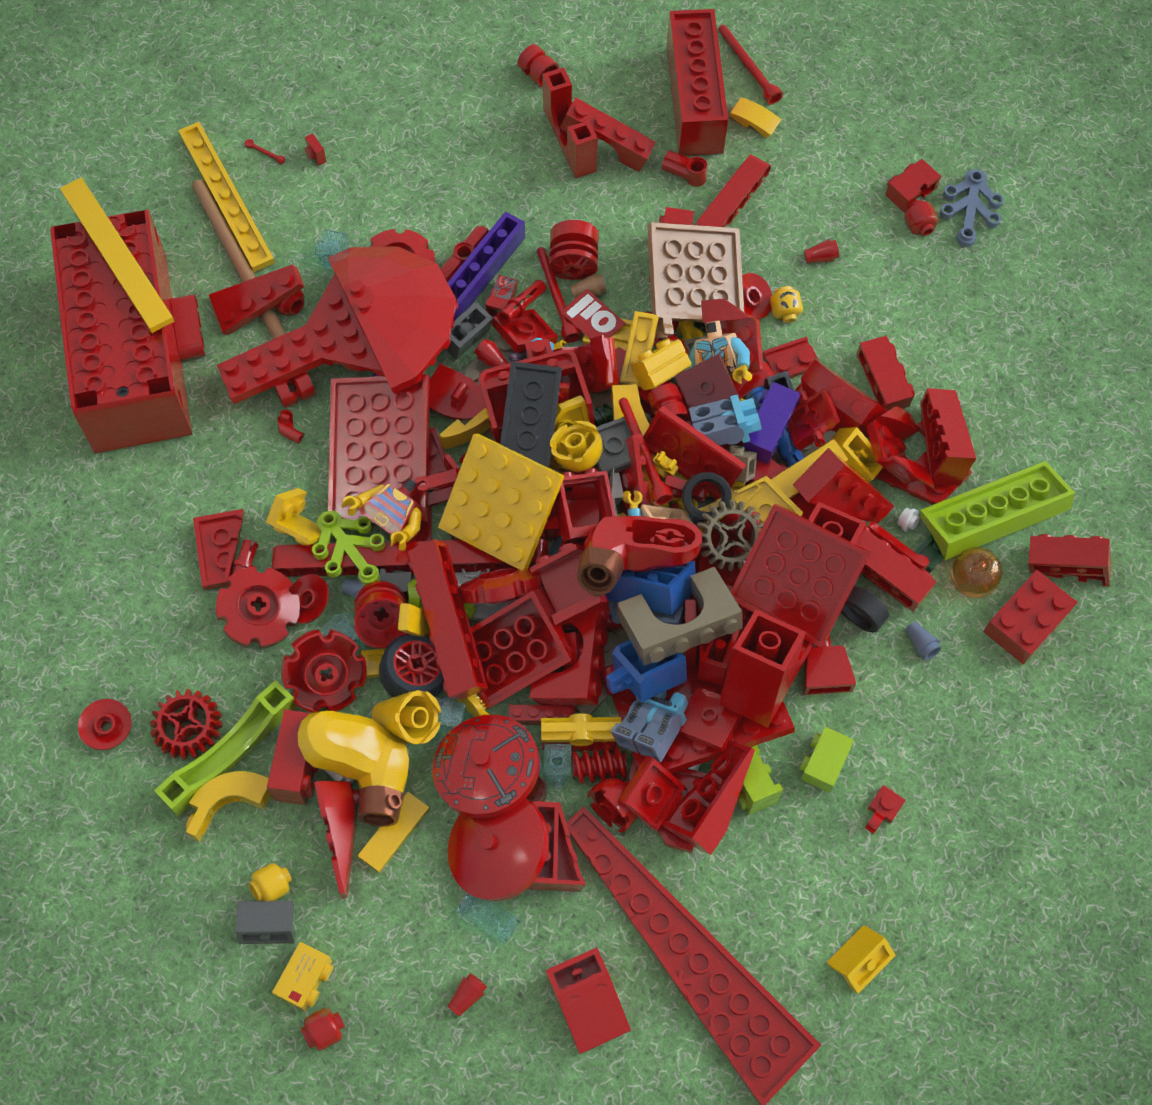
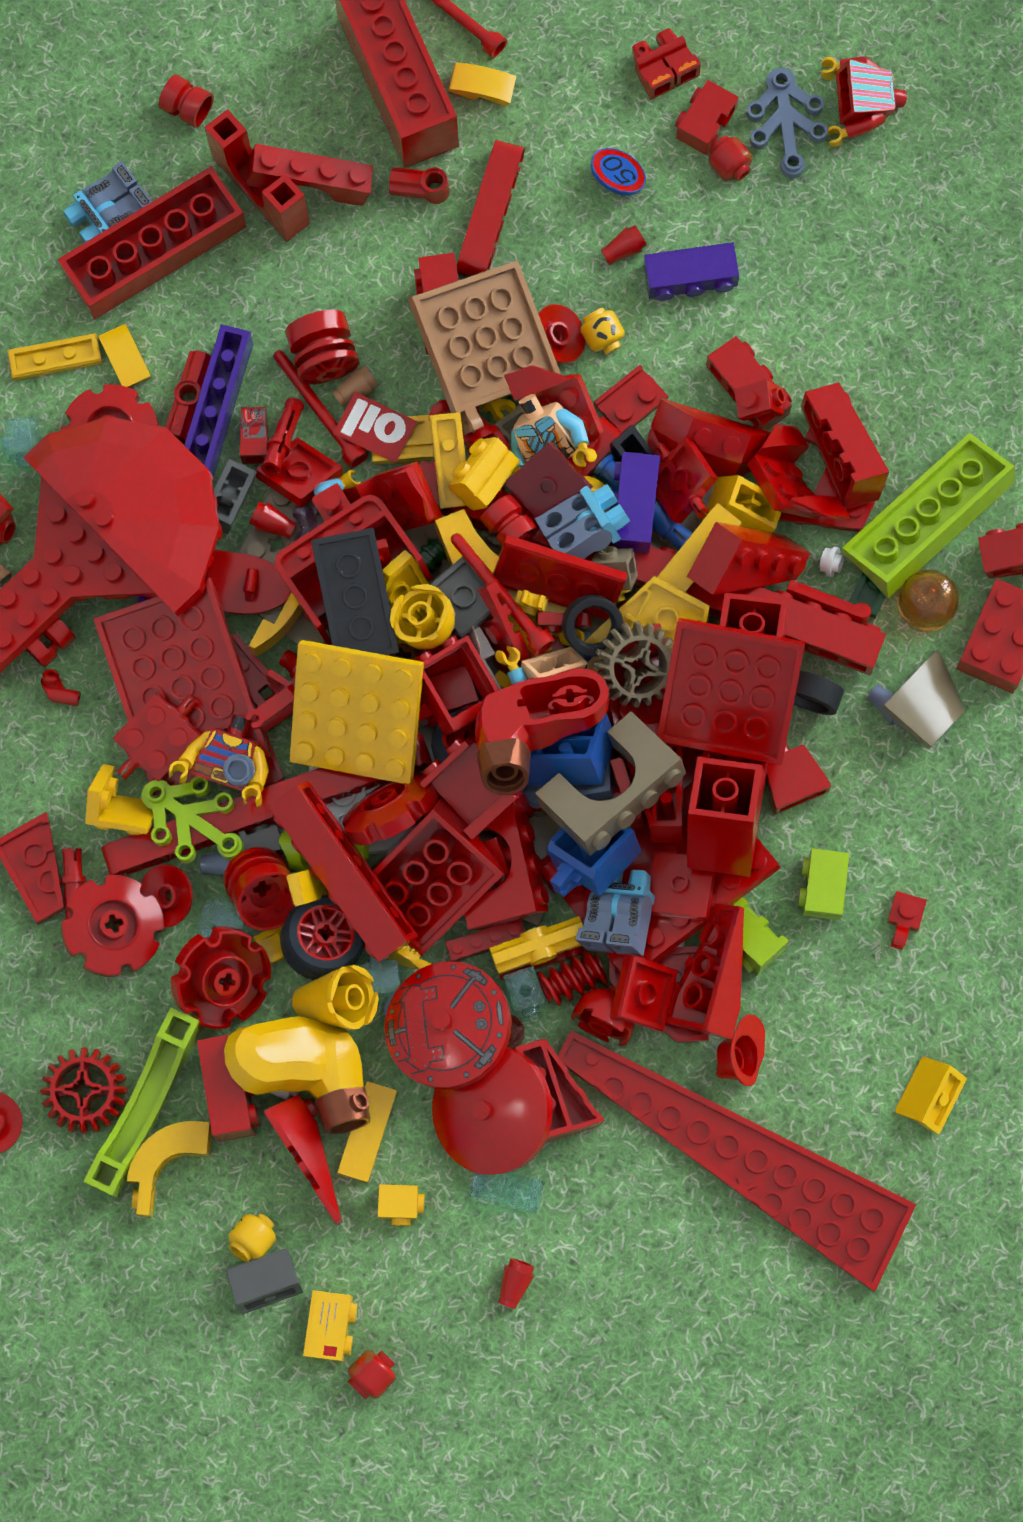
camera: 15 degrees left, 10 degrees up
(344, 476) = (156, 736): none -> red plate
(379, 203) = (54, 356): none -> yellow tile
(396, 517) = (239, 769): none -> sand blue plate
(397, 897) = (400, 1204): none -> yellow brick
(429, 217) = (124, 356): none -> yellow slope
(457, 118) = (106, 202): none -> hips
(478, 147) = (152, 242): none -> red brick
(588, 1000) = (650, 1244): red slope -> none
(716, 871) = (743, 1054): none -> red piece
(834, 201) = (618, 171): none -> piece
(867, 283) = (691, 271): none -> dark purple brick
(890, 382) = (759, 400): none -> red bracket
(893, 142) = (665, 65): none -> red hips
(952, 646) = (927, 702): none -> dark tan slope
(1035, 204) = (863, 94): none -> red torso

